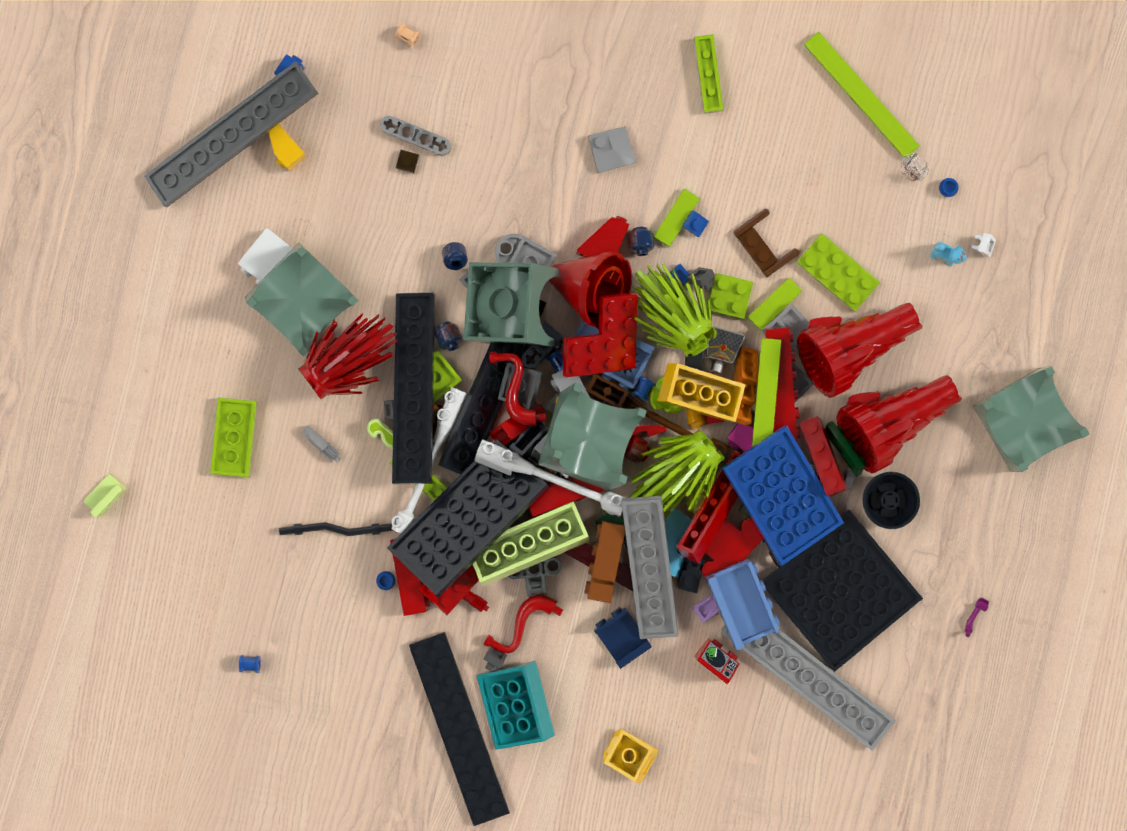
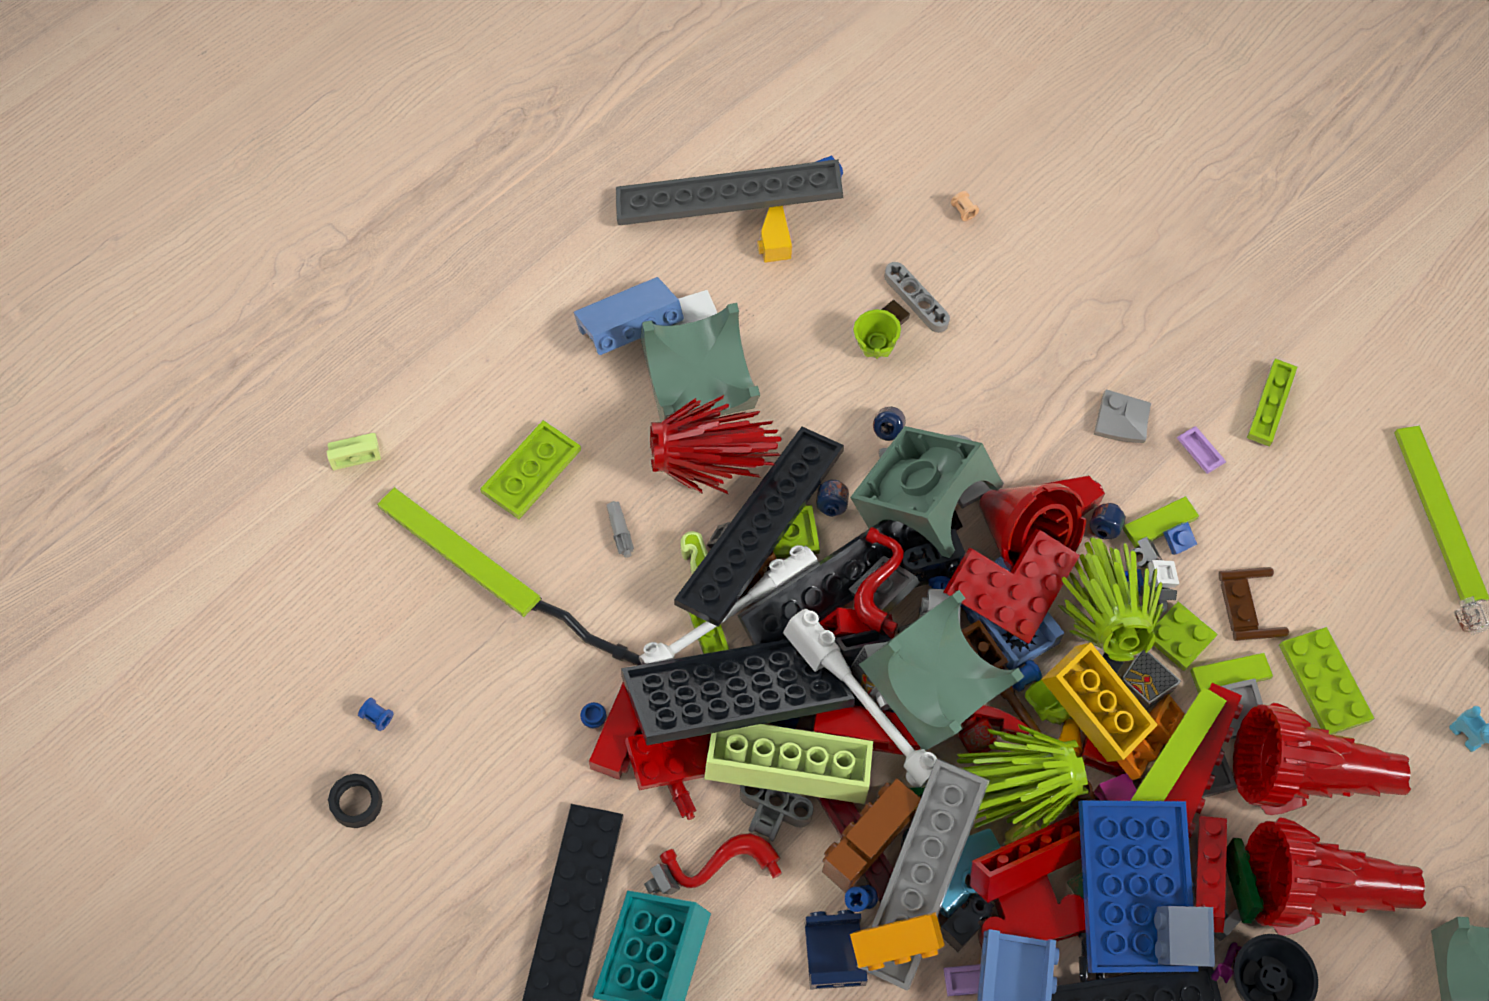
camera: 25 degrees right, 25 degrees down
(224, 283) = (620, 317): none -> medium blue panel
(225, 526) = (459, 552): none -> lime tile
(261, 724) = (344, 784): none -> black tyre
(406, 190) = (877, 332): none -> lime helmet
(623, 598) = (854, 897): none -> blue bush
(657, 616) = (897, 941): none -> light orange brick
(677, 143) = (1201, 450): none -> lavender tile
(680, 247) = (1148, 550): none -> tile
(697, 261) = (1165, 573): none -> white tile
(825, 514) = (1185, 936): none -> sand blue slope
(859, 511) = (1224, 969): none -> magenta piece

